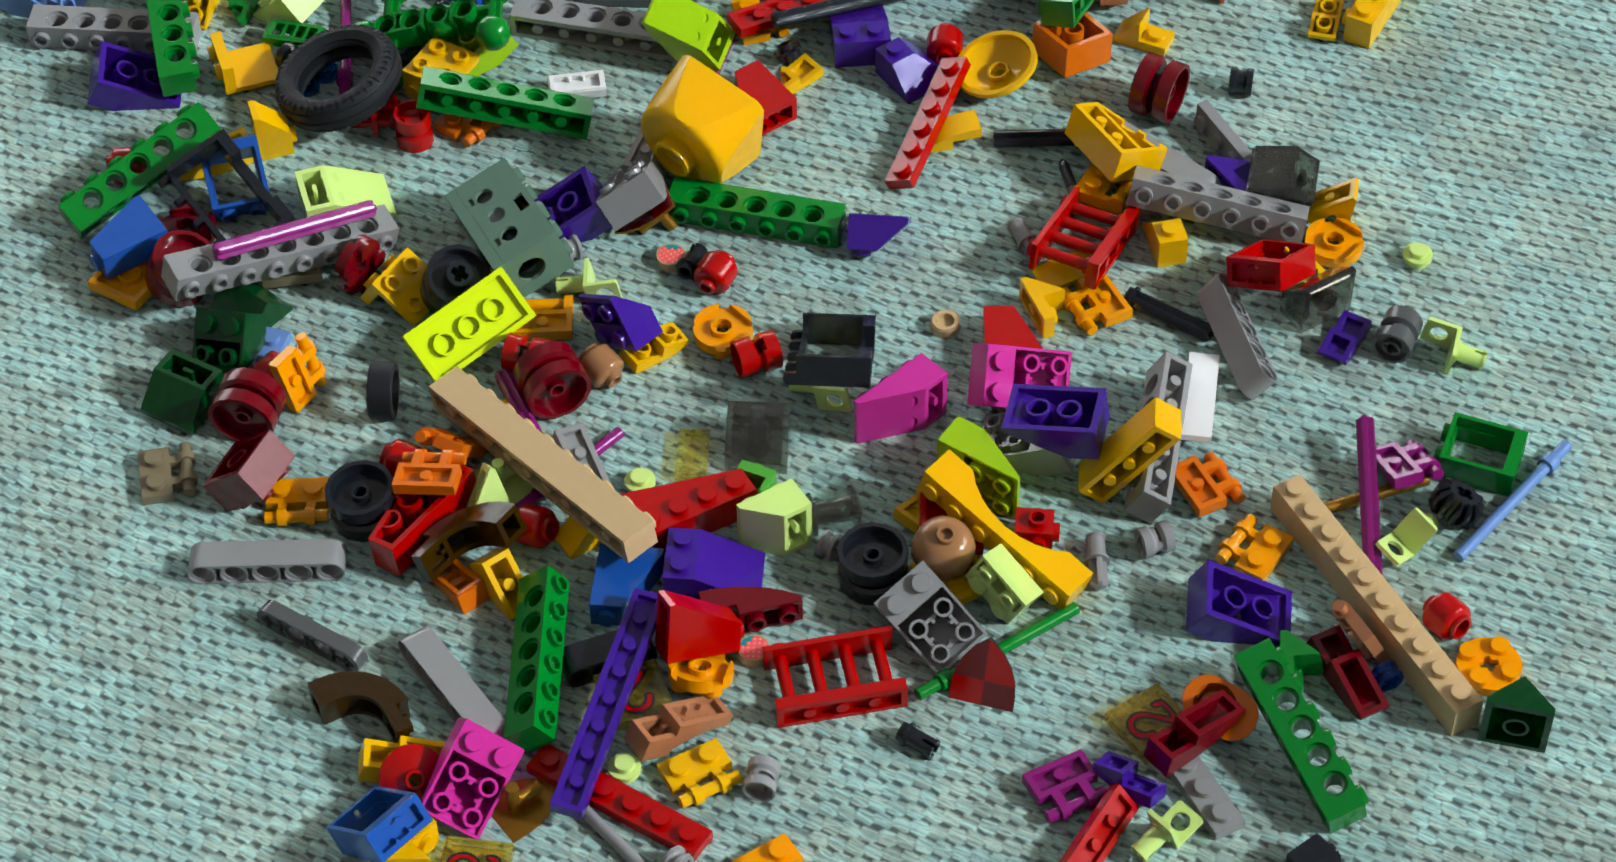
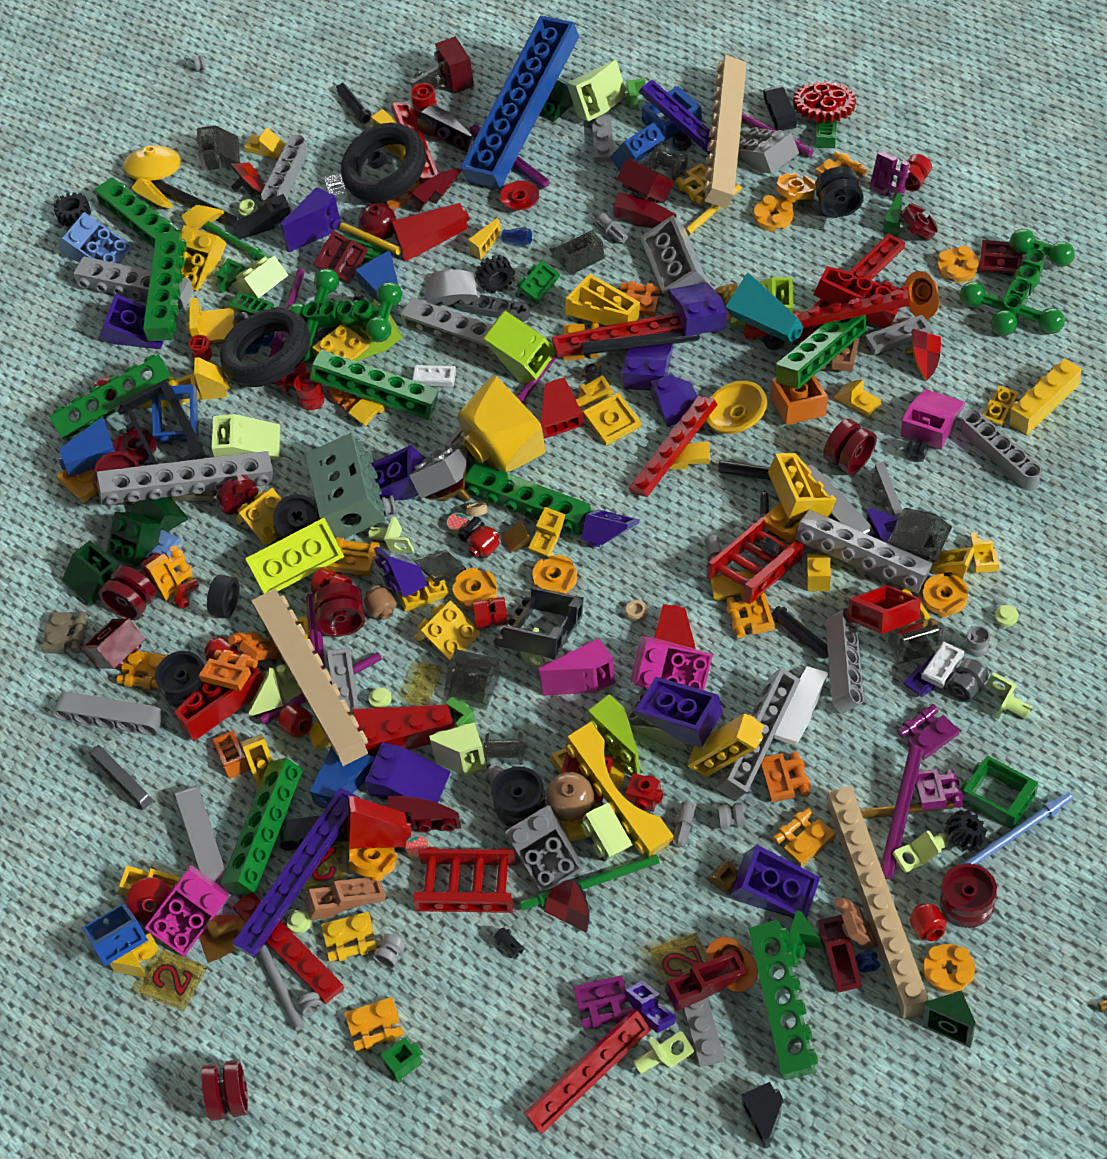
camera: 20 degrees right, 5 degrees up
(237, 93) = (200, 347): none -> red wheel
(293, 230) = (194, 464): magenta axle -> none
(319, 406) = (182, 592): none -> red arm
(361, 693) = (137, 827): dark brown arch -> none
(464, 530) = (240, 718): dark brown arch -> none
(499, 139) = (365, 410): none -> yellow slope
(672, 309) = (440, 566): none -> clear smoke piece
(691, 235) = (476, 509): none -> tan tile
(704, 383) = (447, 629): none -> yellow bracket
(757, 261) = (516, 537): none -> pearl gold slope
(798, 247) = (547, 532): none -> yellow slope
(808, 295) = (555, 564): none -> light orange plate
(835, 103) = (612, 419): none -> yellow plate
(944, 42) = (705, 382): red head -> none
(1041, 304) = (710, 606): yellow slope -> none
(1100, 214) = (770, 545): none -> black plate
(1169, 613) = (724, 877): none -> pearl gold slope
(1246, 44) = (931, 418): none -> dark pink slope
(1345, 67) = (1000, 449): none -> light grey beam
(1362, 320) = (942, 664): none -> white plate
(1370, 194) = (984, 555): none -> yellow slope
(1378, 401) = (932, 737): none -> magenta plate
(1394, 287) = (977, 641): none -> light grey wheel
(1487, 575) = (968, 895): none -> dark red wheel

